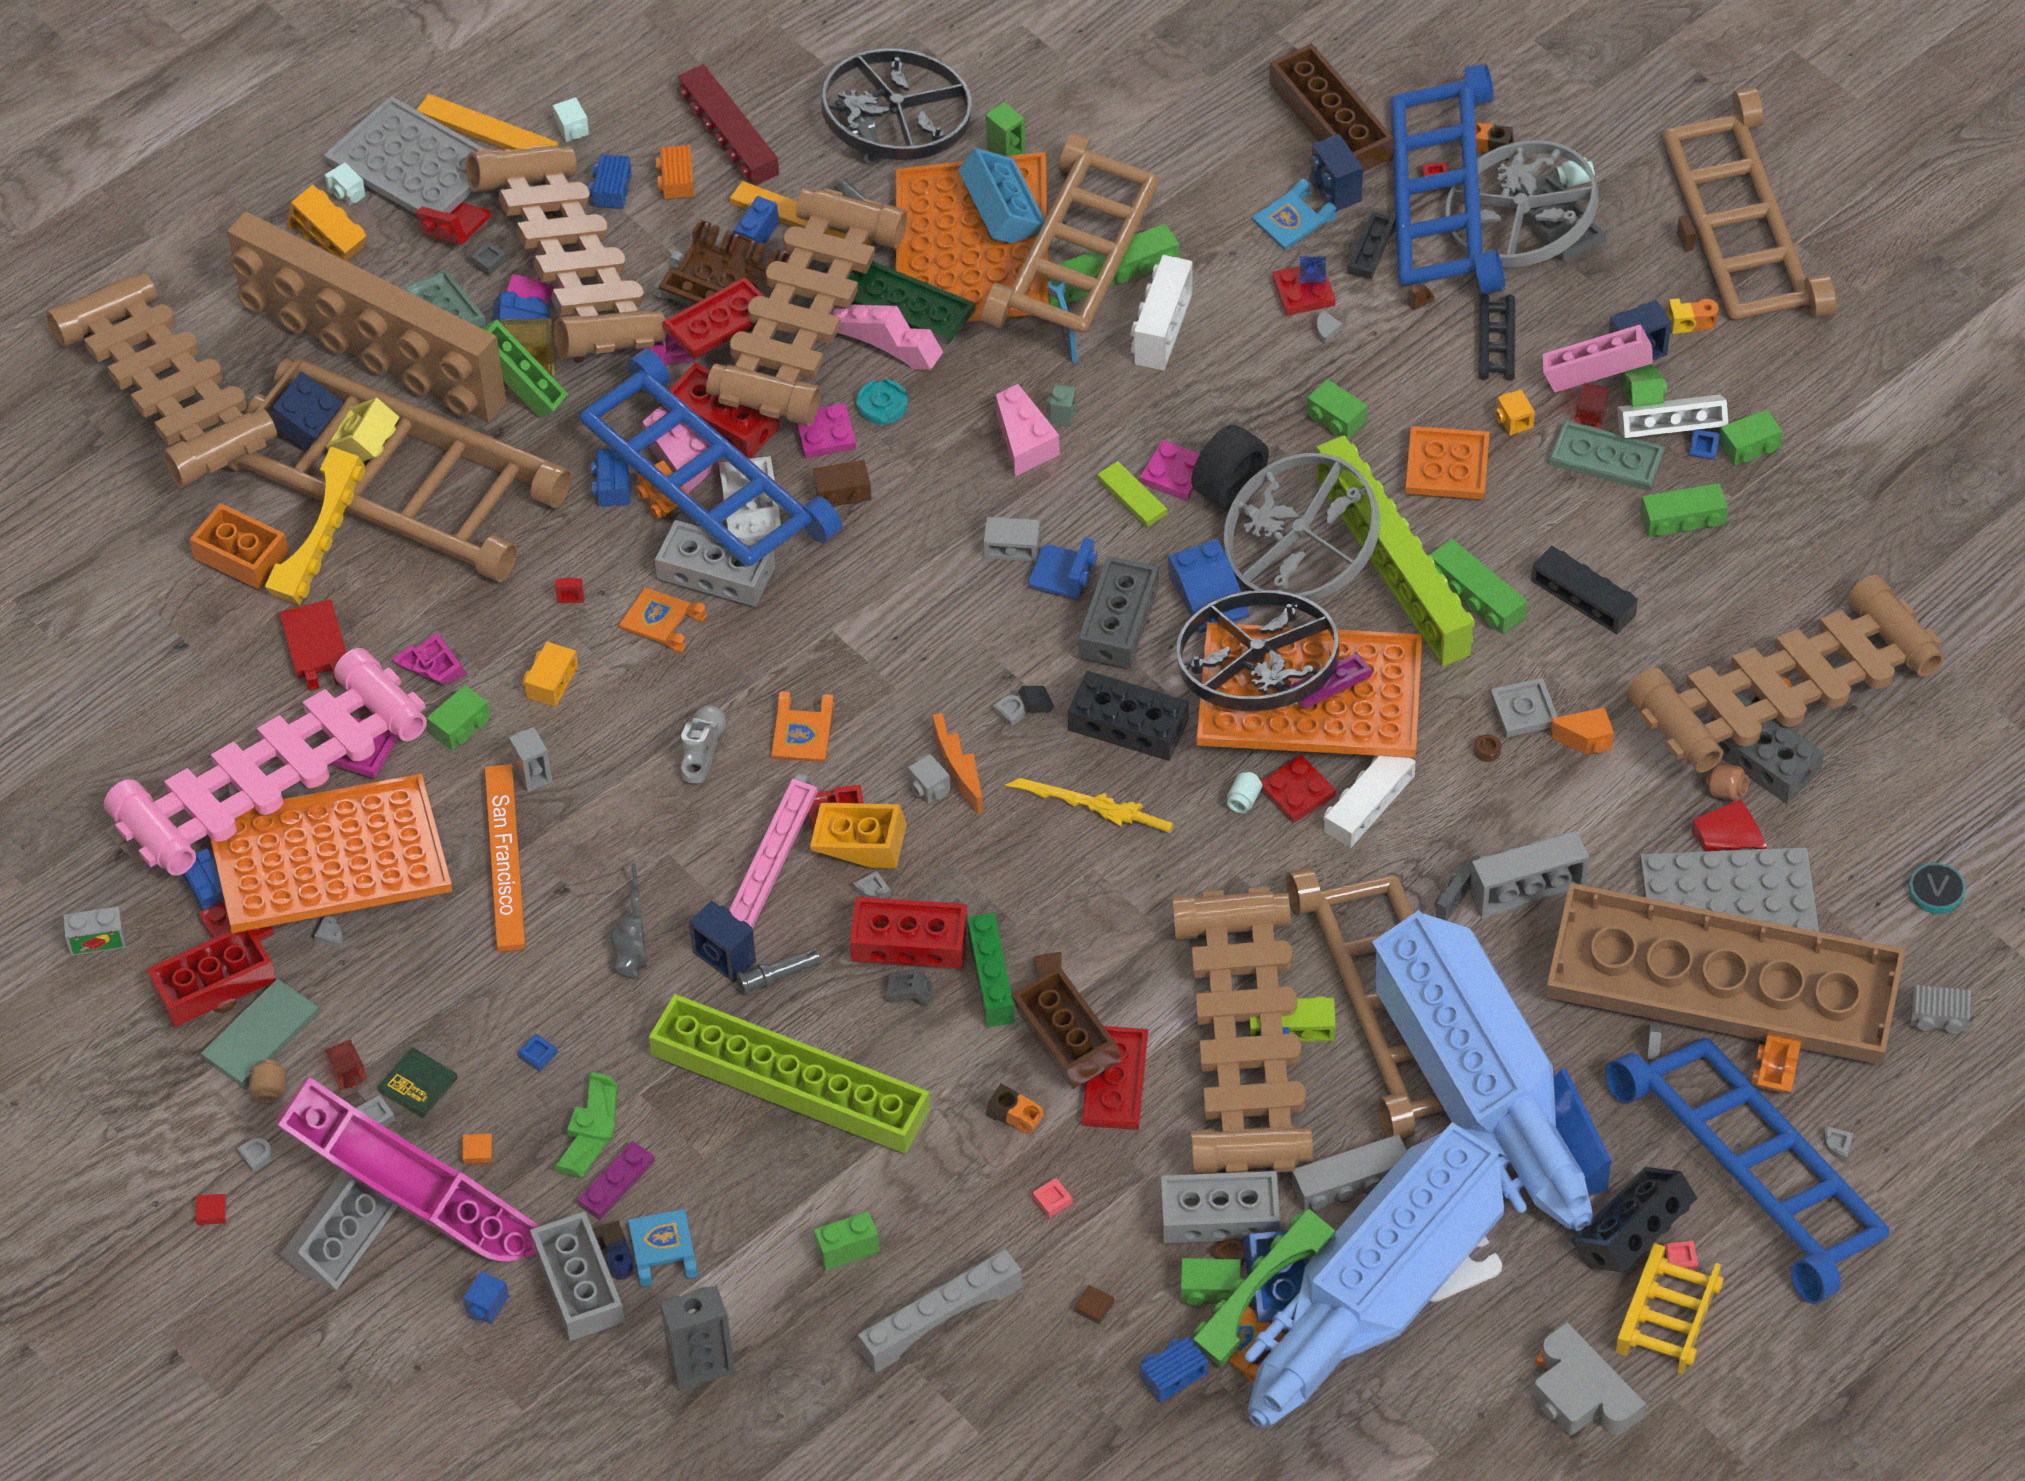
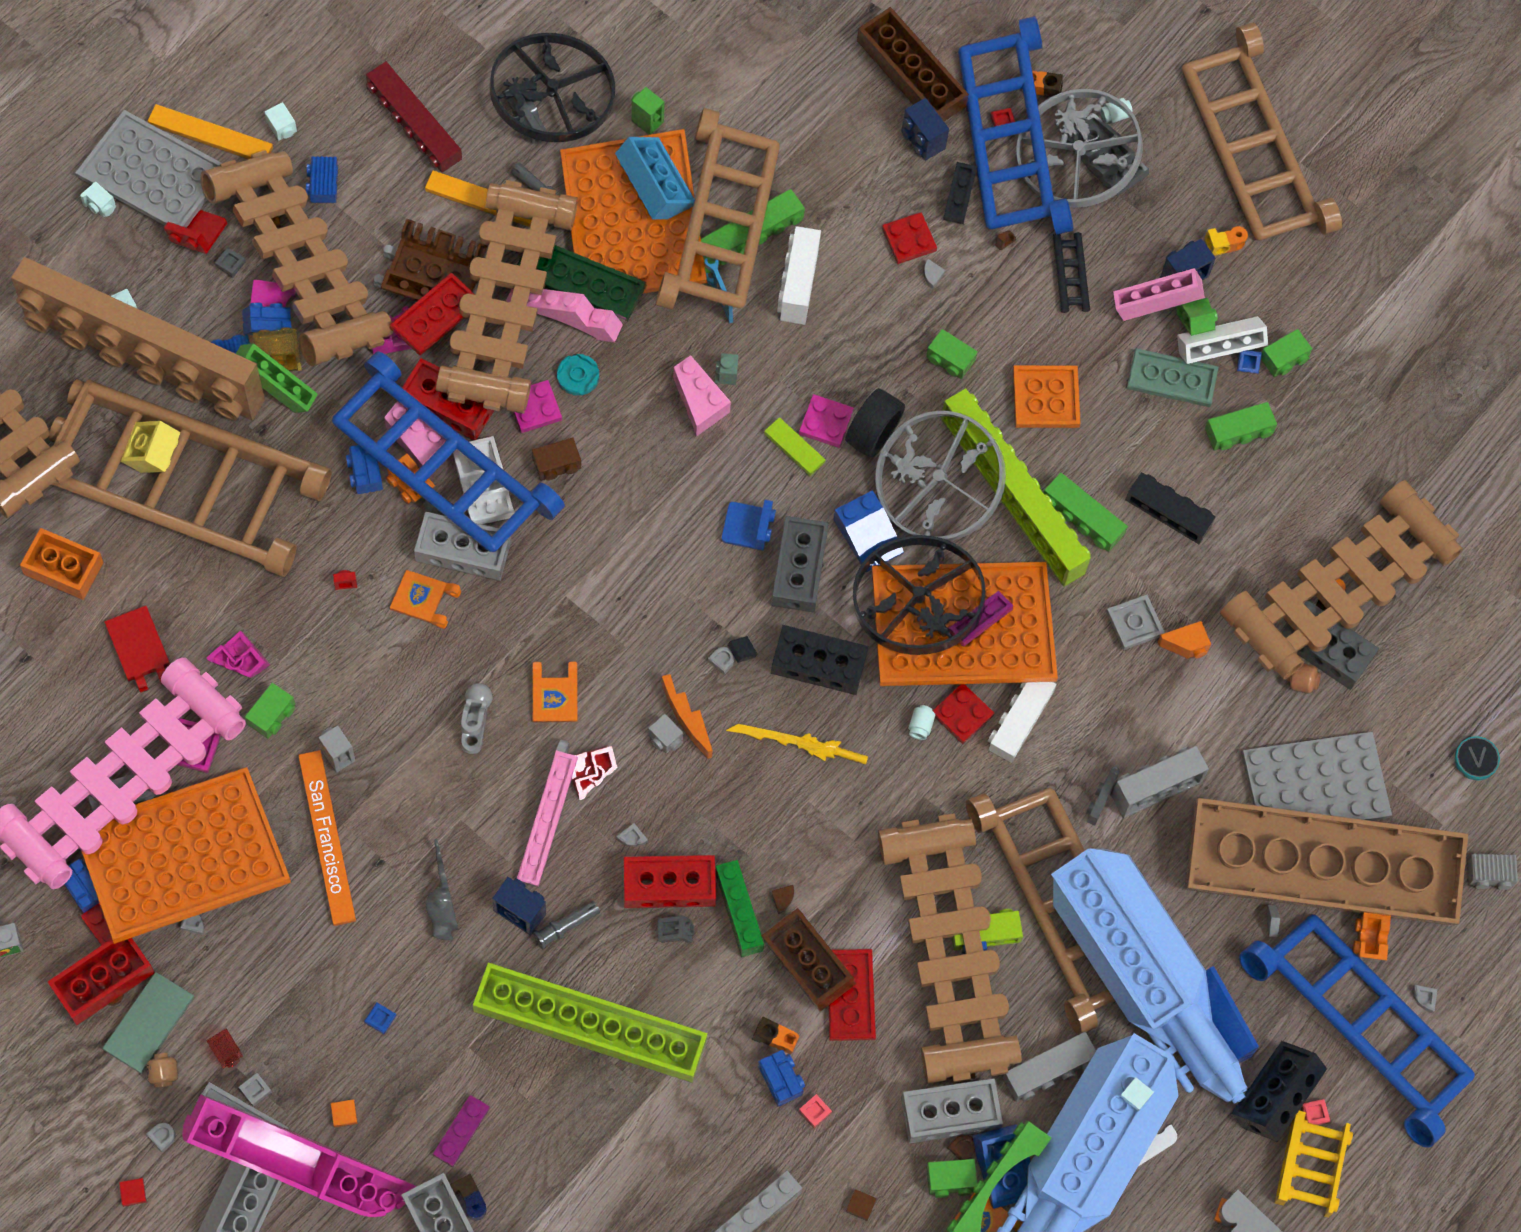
camera: 15 degrees left, 15 degrees up
(293, 577) = (141, 497): yellow arch -> none
(304, 410) = (98, 431): dark blue brick -> none
(325, 224) = (89, 243): light orange wedge -> none
(417, 1082) = (285, 1056): clear green tile -> none
(448, 295) = (199, 312): sand green tile -> none
(550, 674) = (340, 661): light orange brick -> none
(590, 1126) = (434, 1084): bright green plate -> none
(660, 1241) = (506, 1183): dark azure flag -> none
(676, 172) = (377, 166): orange brick -> none
(758, 220) = (451, 212): blue brick -> none
(846, 1240) = (657, 1170): bright green brick -> none
(860, 833) = (616, 792): light orange slope -> none
(1012, 539) = (703, 499): light grey brick -> none
(1014, 1155) = (781, 1078): none -> blue brick
(1291, 218) = (889, 171): dark azure flag -> none
(1313, 269) = (917, 224): clear blue plate -> none
(1445, 1186) = (1137, 1094): none -> light aqua tile
(1487, 748) = (1109, 661): reddish brown tile -> none
(1514, 412) = (1094, 344): light orange brick -> none
(1592, 405) = (1156, 332): clear red brick -> none
(1686, 233) = (1212, 162): reddish brown tile -> none
(1728, 829) = (1309, 720): red slope -> none

